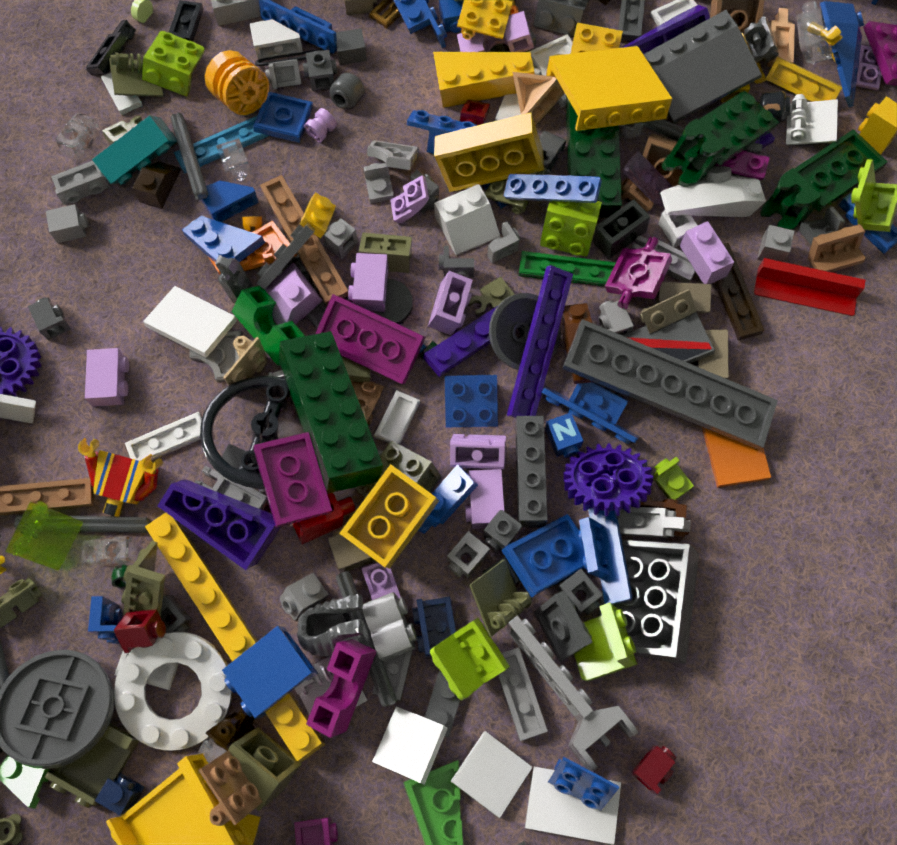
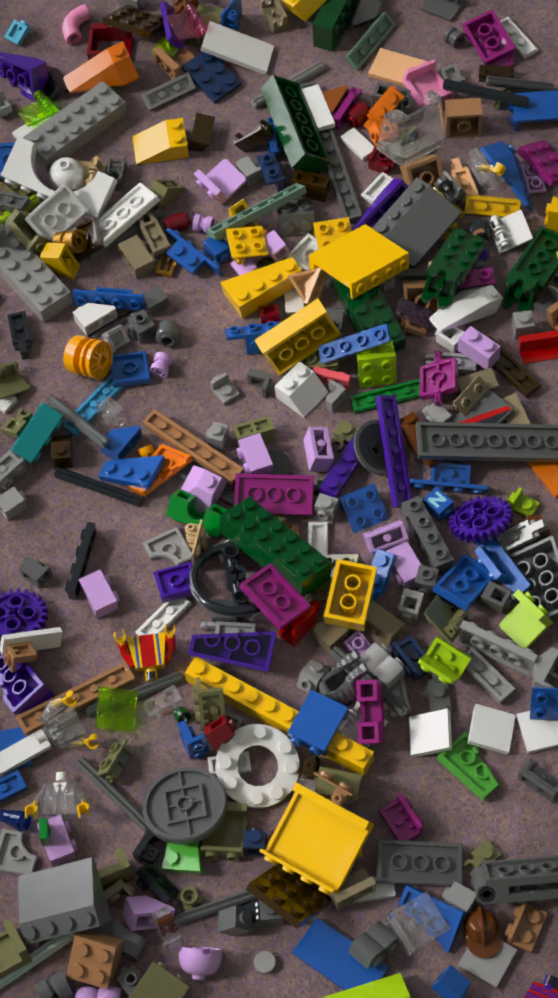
camera: 20 degrees left, 10 degrees down
(108, 326) = (79, 567): none -> black plate
(171, 62) = (29, 361): lime bracket -> none
(177, 244) = (98, 486): none -> black axle
(190, 321) = (139, 533): white tile -> none
(194, 398) = (173, 582): none -> dark purple plate
(232, 277) = (159, 491): dark grey hinge -> none
(284, 254) = (188, 460): dark grey plate -> none
(318, 214) = (194, 426): yellow plate -> none
(394, 154) = (227, 364): light grey tile -> none
(411, 201) = (256, 391): lavender slope -> none
(421, 565) = (383, 624): none -> dark tan hinge
(424, 383) = (326, 508): none -> light grey brick
(460, 266) = (303, 425): dark grey bracket -> none
(504, 212) = (326, 375): none -> coral plate
(562, 626) = (495, 617): dark grey hinge -> none
(621, 229) = (412, 354): pearl dark grey brick -> none
(719, 174) = (463, 291): light grey tile -> none

